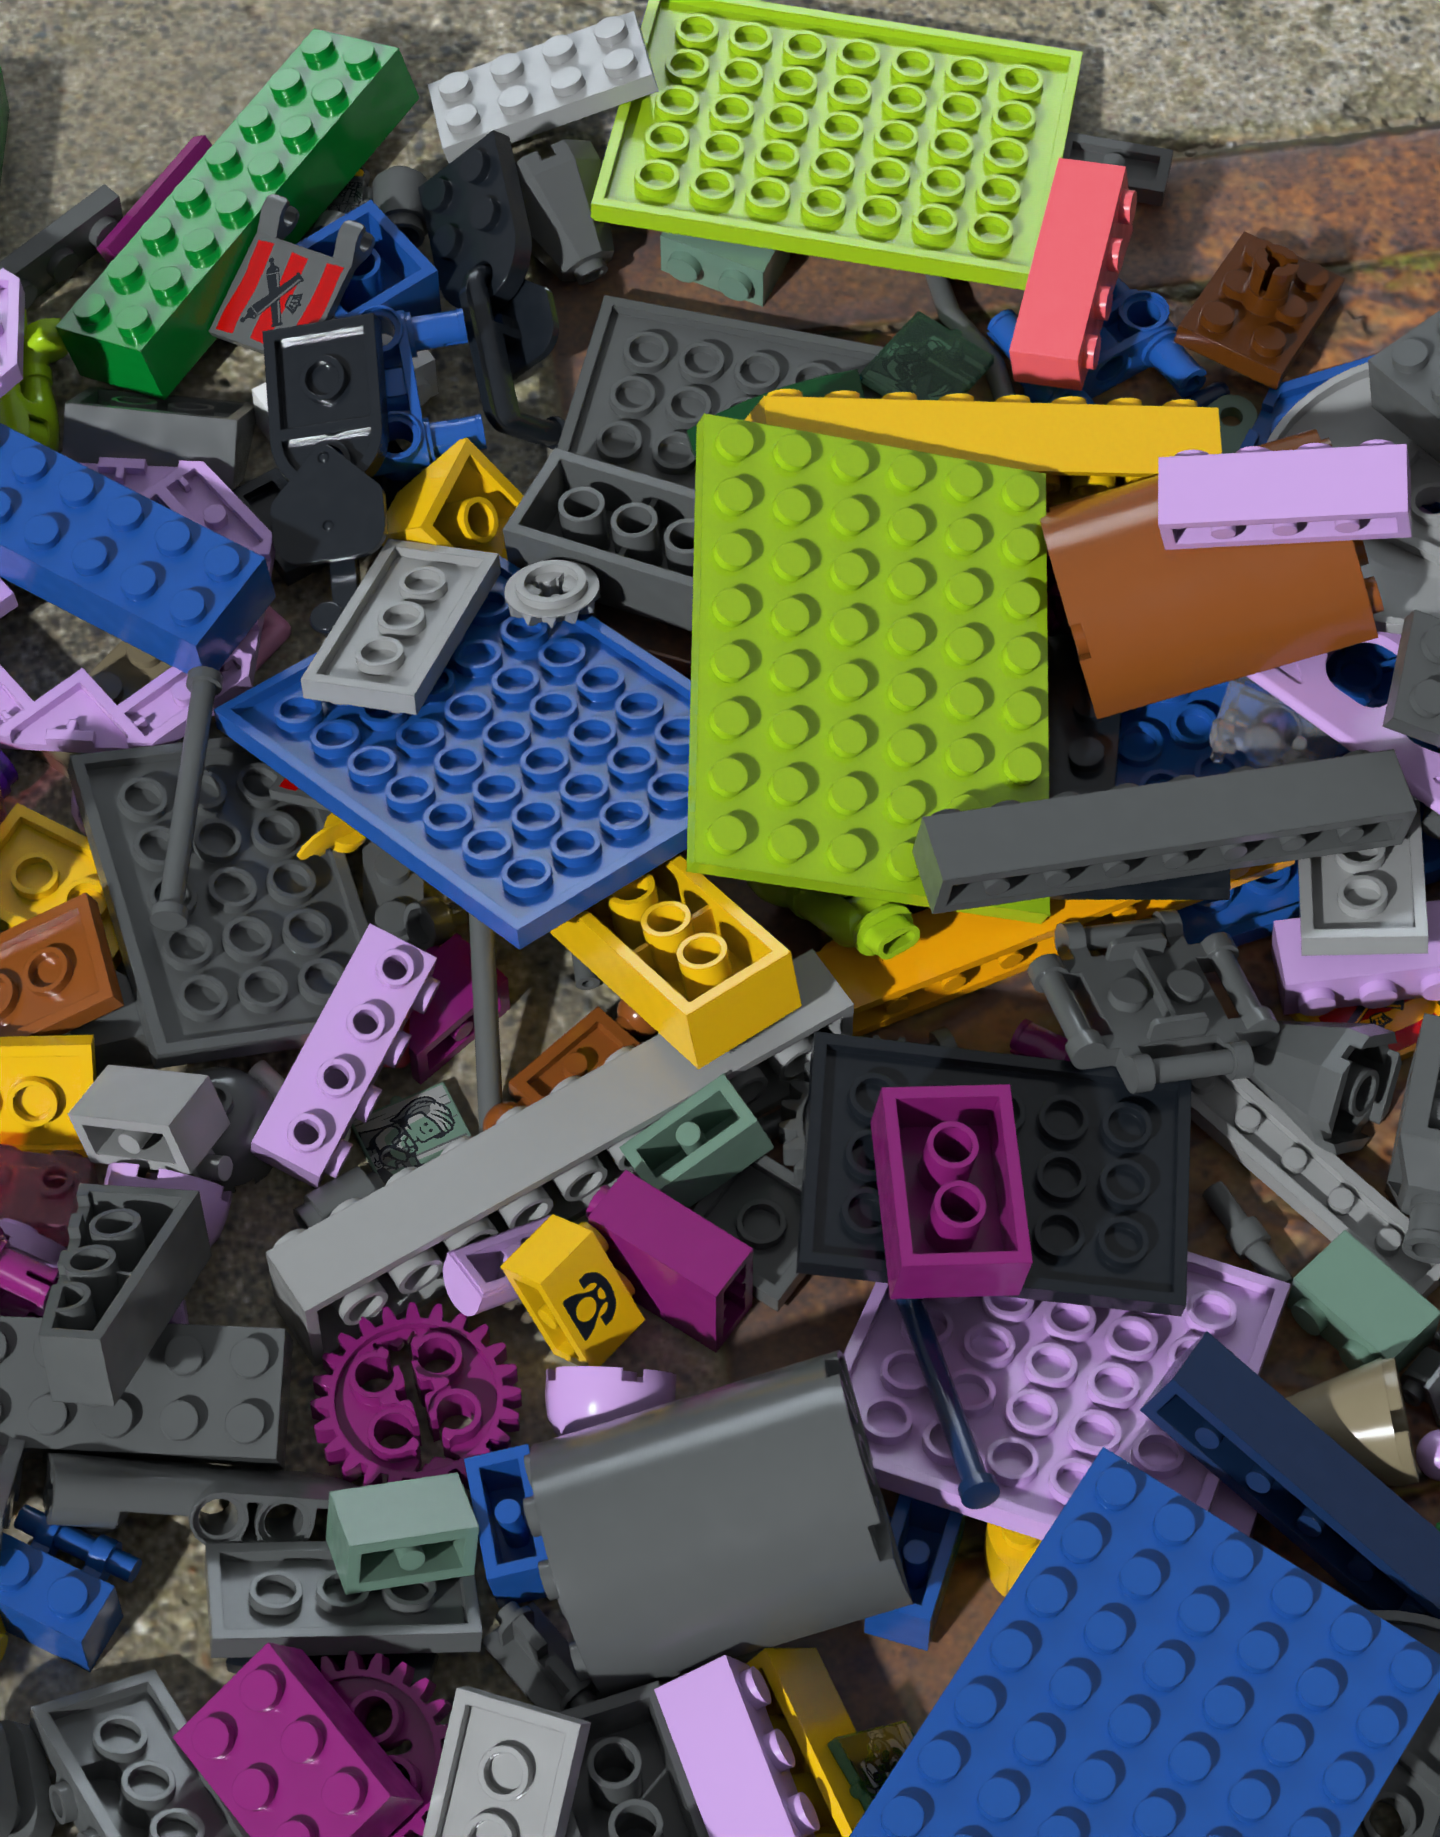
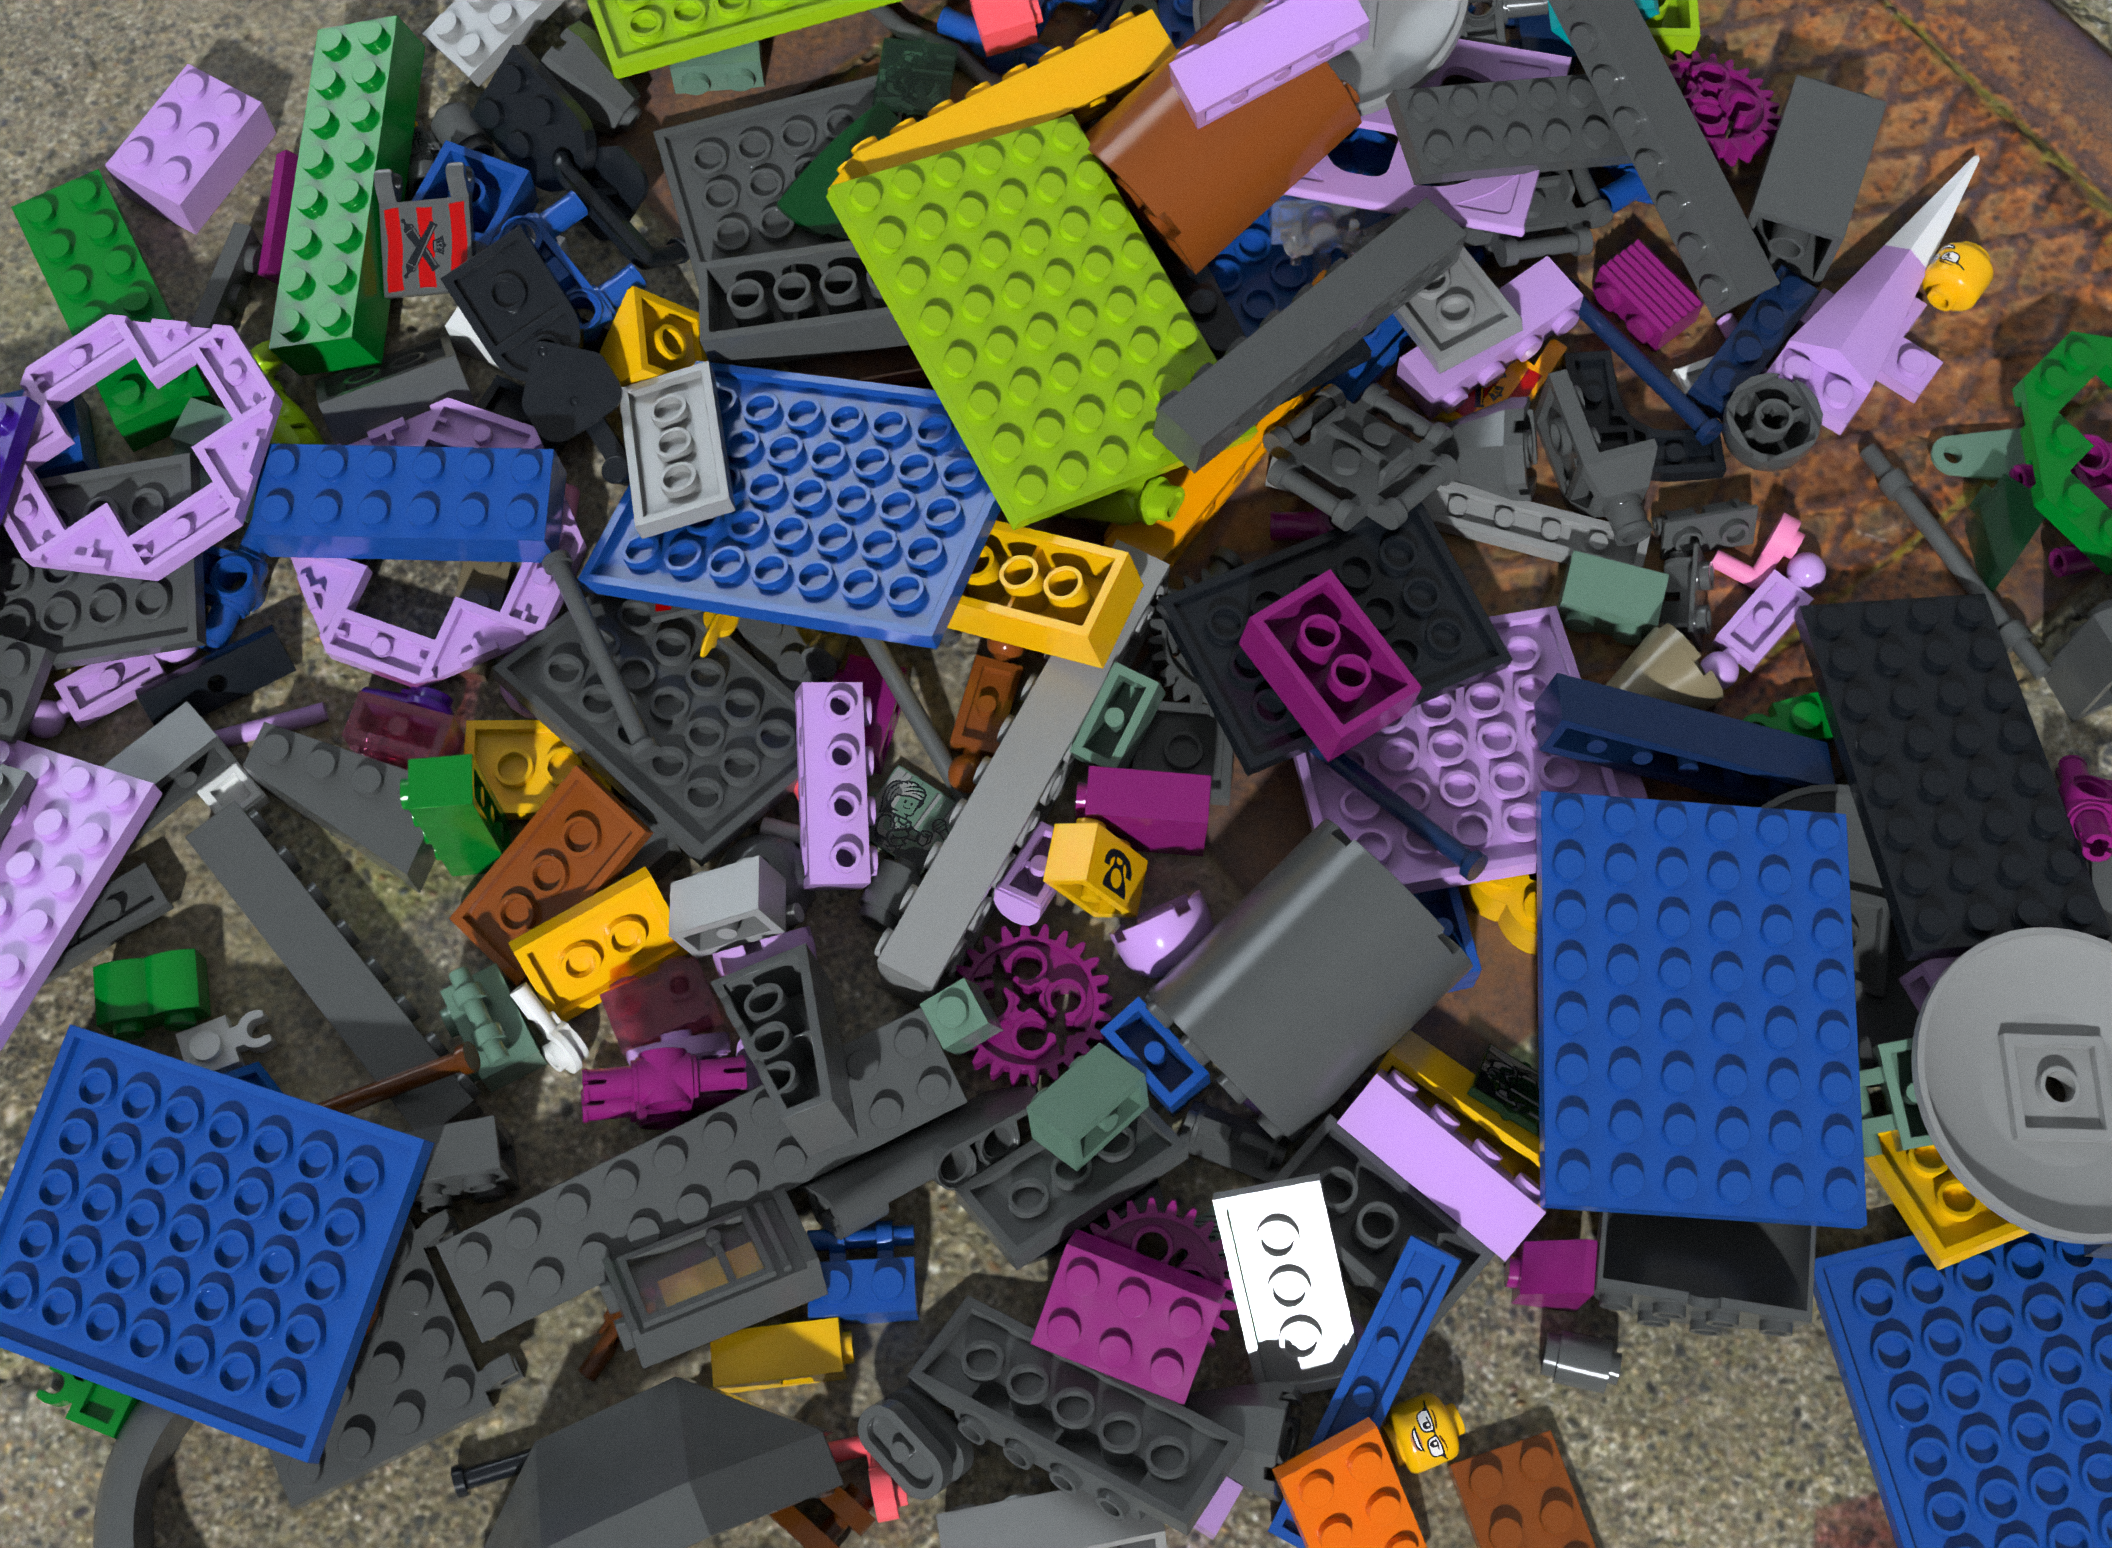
camera: 30 degrees left, 10 degrees up
(112, 92) = (191, 149): none -> lavender brick
(324, 1364) = (961, 1017): none -> sand green brick
(537, 591) = (754, 361): light grey gear -> none
(1245, 1233) = (1503, 586): dark grey bar -> none

